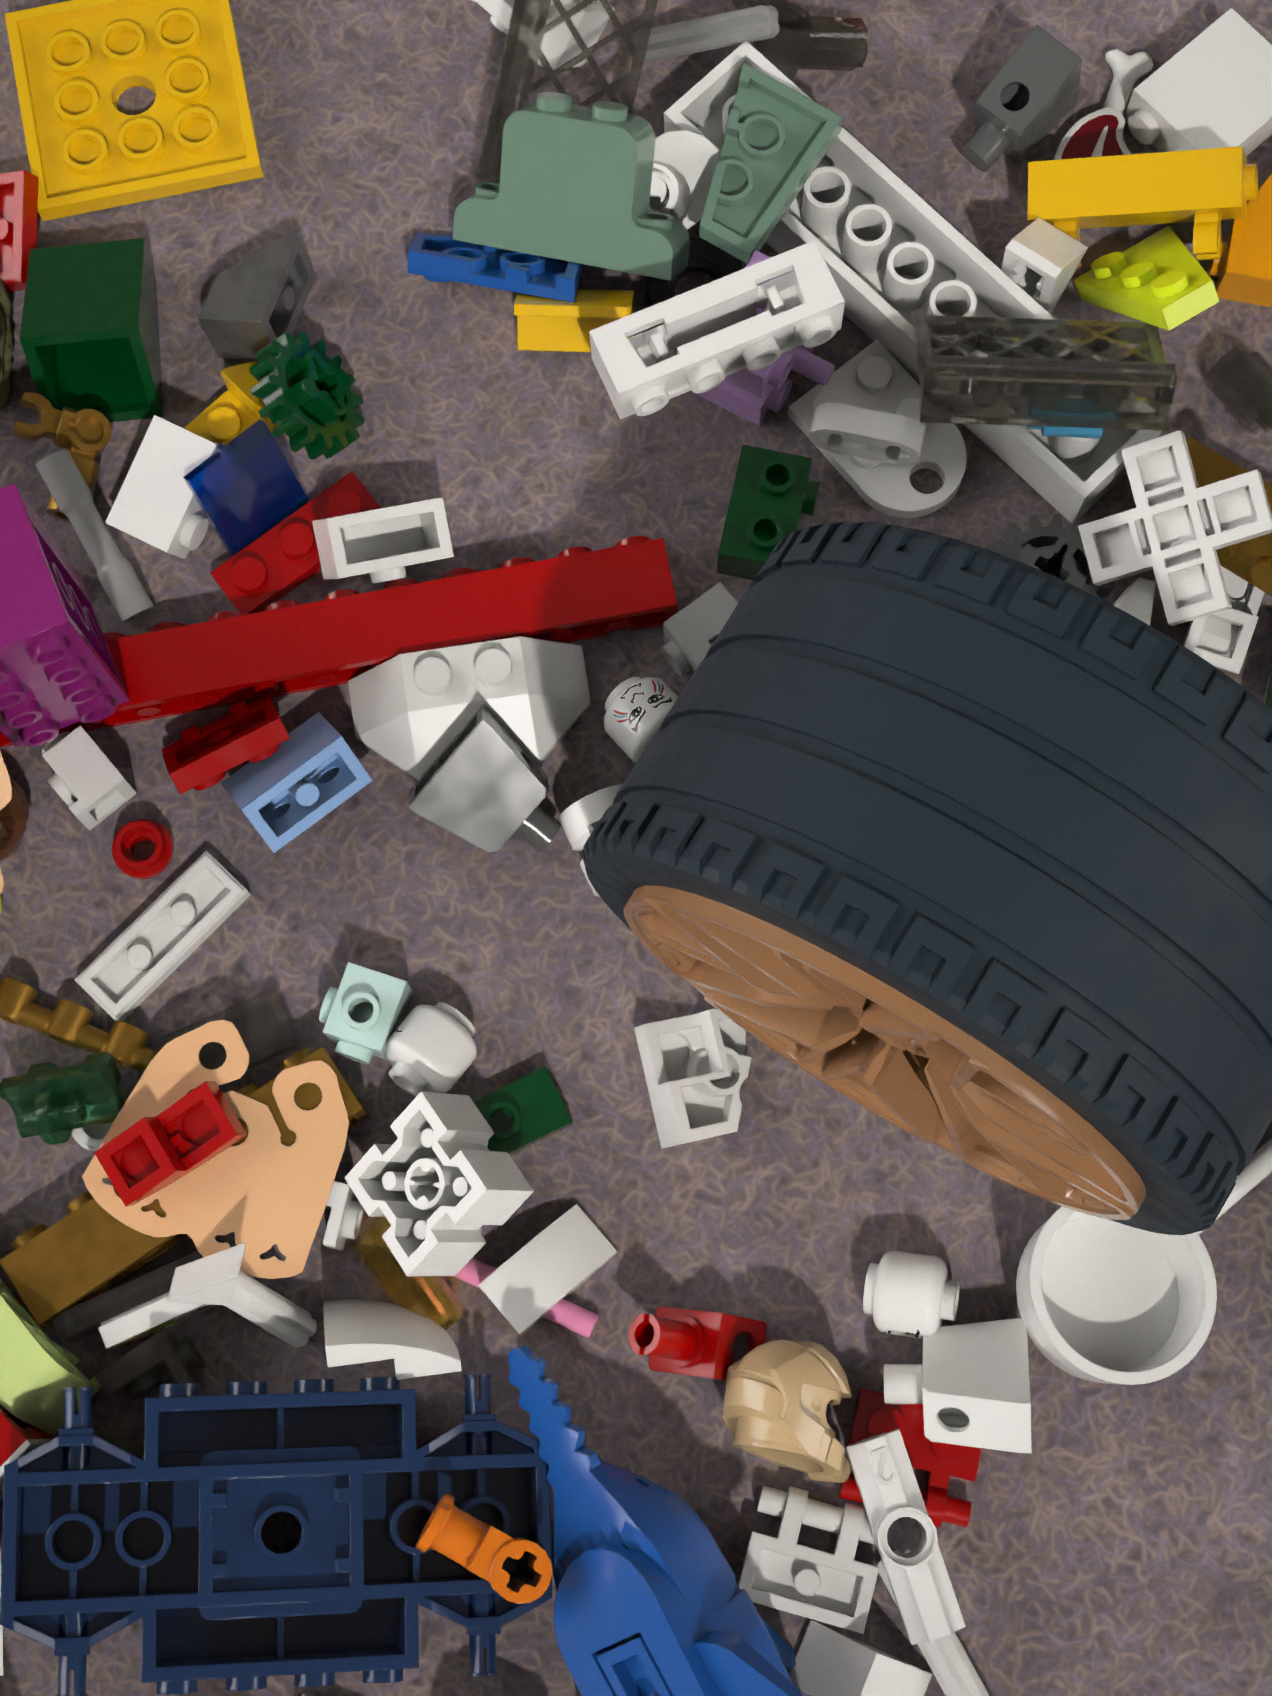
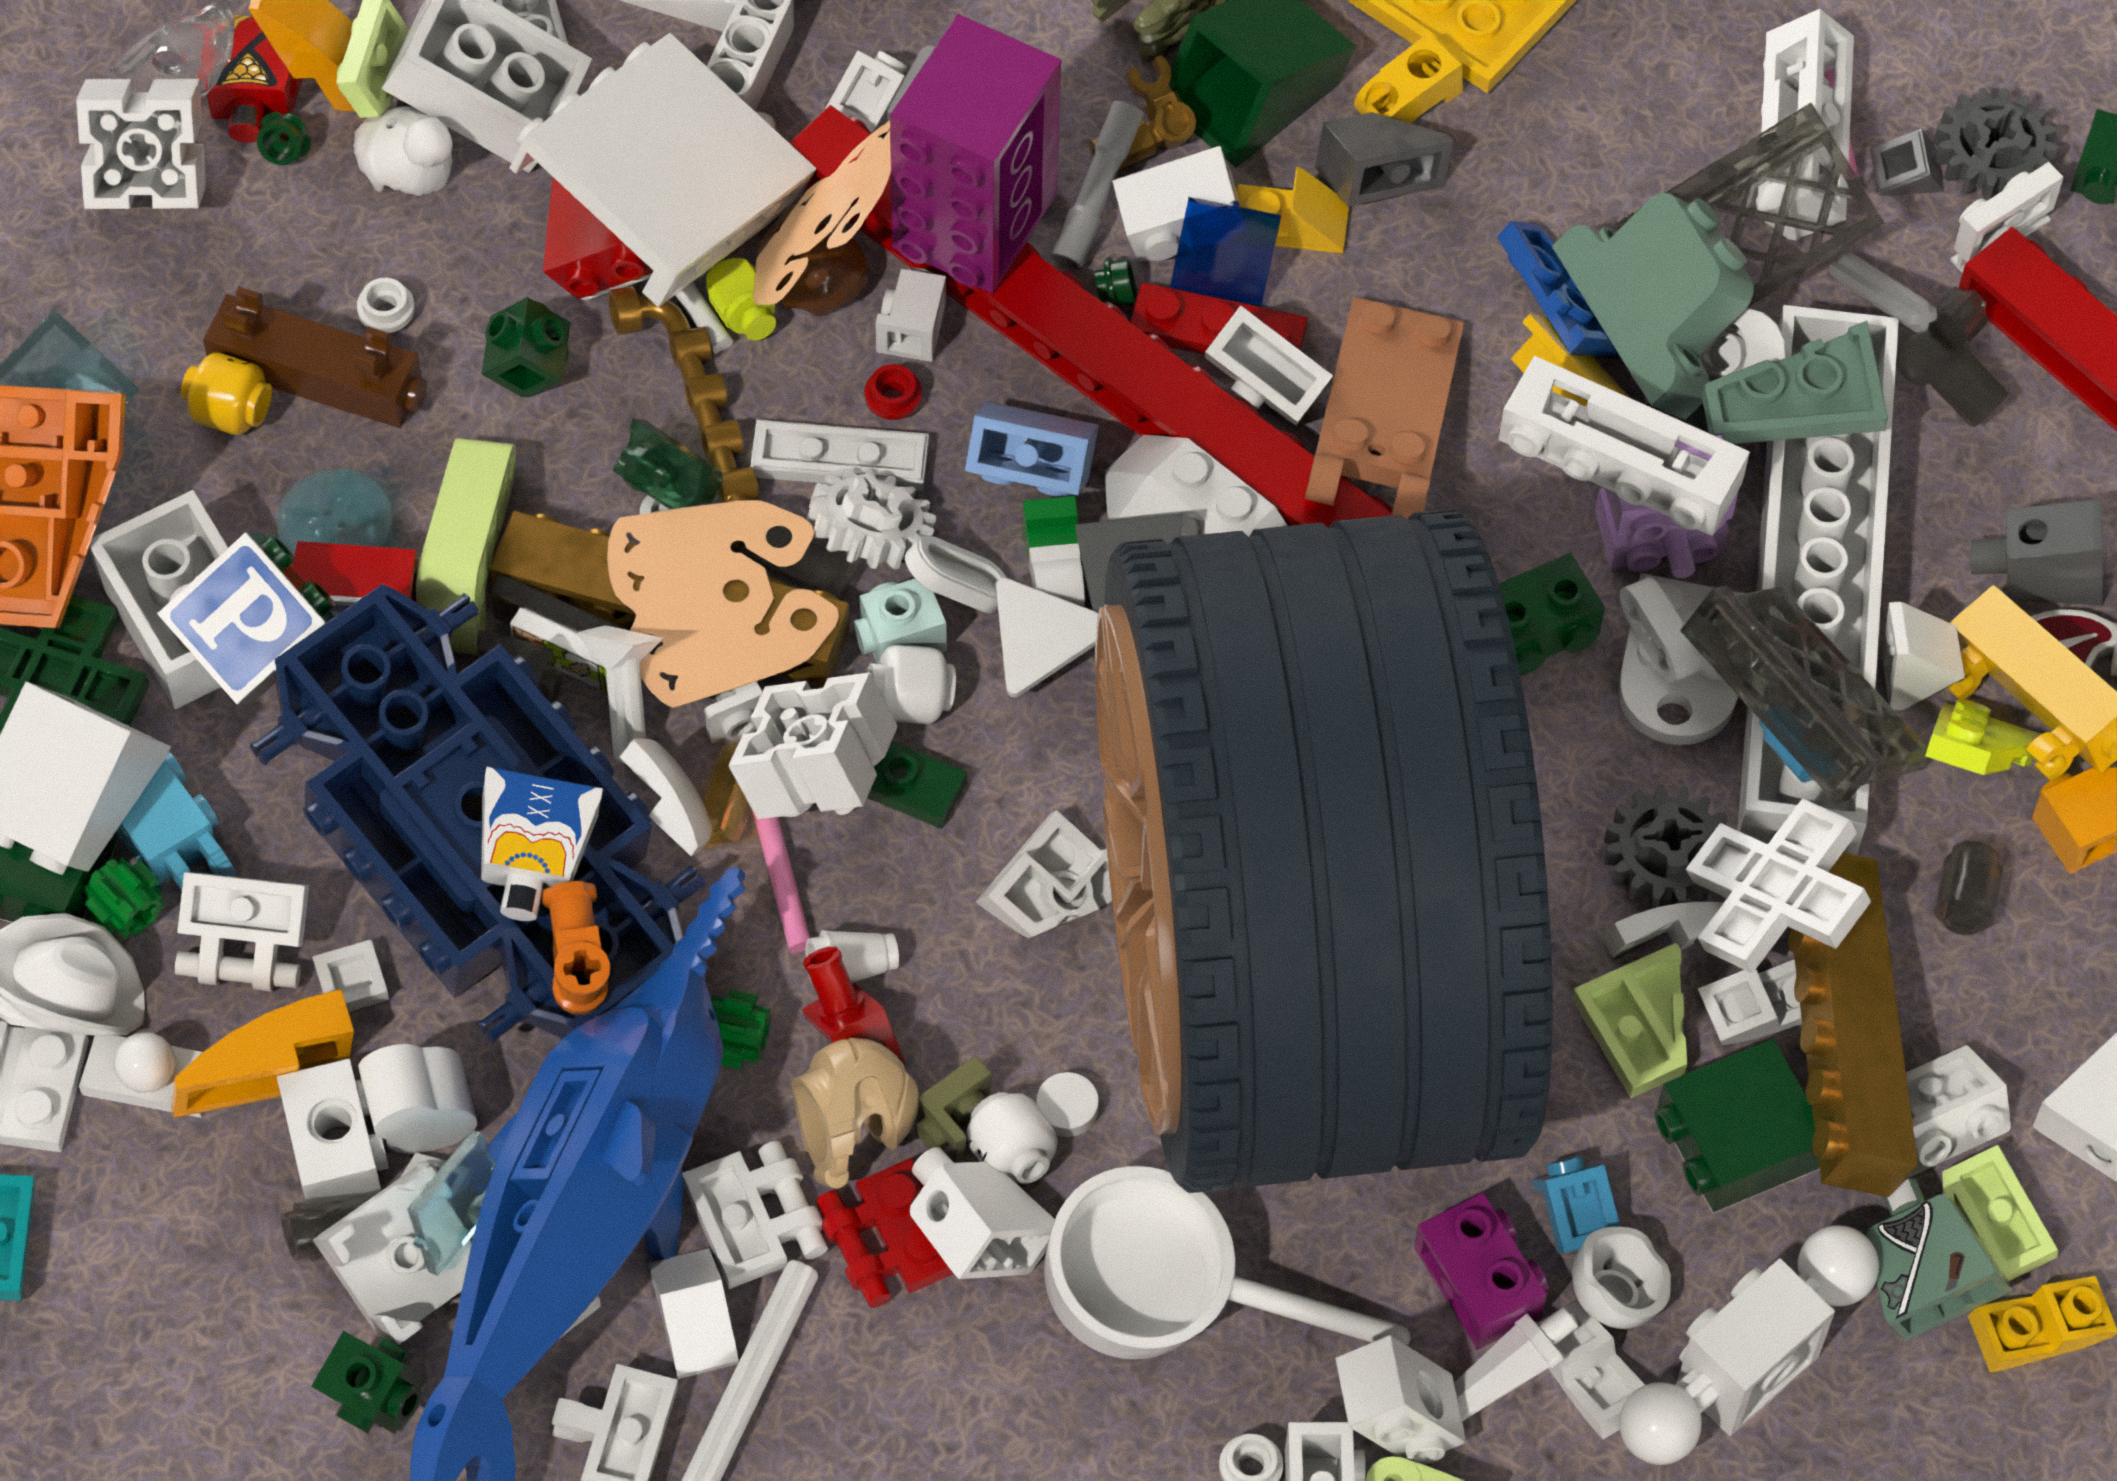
camera: 45 degrees right, 15 degrees down
(170, 1144) = (684, 551): red slope -> none
(193, 592) = (1116, 282): none -> dark green plate
(206, 753) = (1037, 389): red plate -> none
(211, 224) = (1412, 82): none -> yellow leg
(252, 963) = (869, 517): none -> white gear
(307, 395) = (1333, 238): dark green gear -> none
(360, 1516) = (533, 835): none -> torso
(363, 934) = (955, 573): none -> white tile
(405, 840) = (1053, 547): none -> leg
(475, 909) = (1039, 634): none -> white piece
(493, 478) = (1386, 403): none -> nougat hinge
(547, 1269) = (816, 879): white slope -> none
(636, 1443) = (742, 1027): none -> green gear
(639, 1290) = (862, 952): none -> white cone
(840, 1309) = (949, 1102): none -> olive bracket
(905, 1220) = (1068, 1103): none -> white tile
(916, 1577) = (803, 1272): white piece -> none

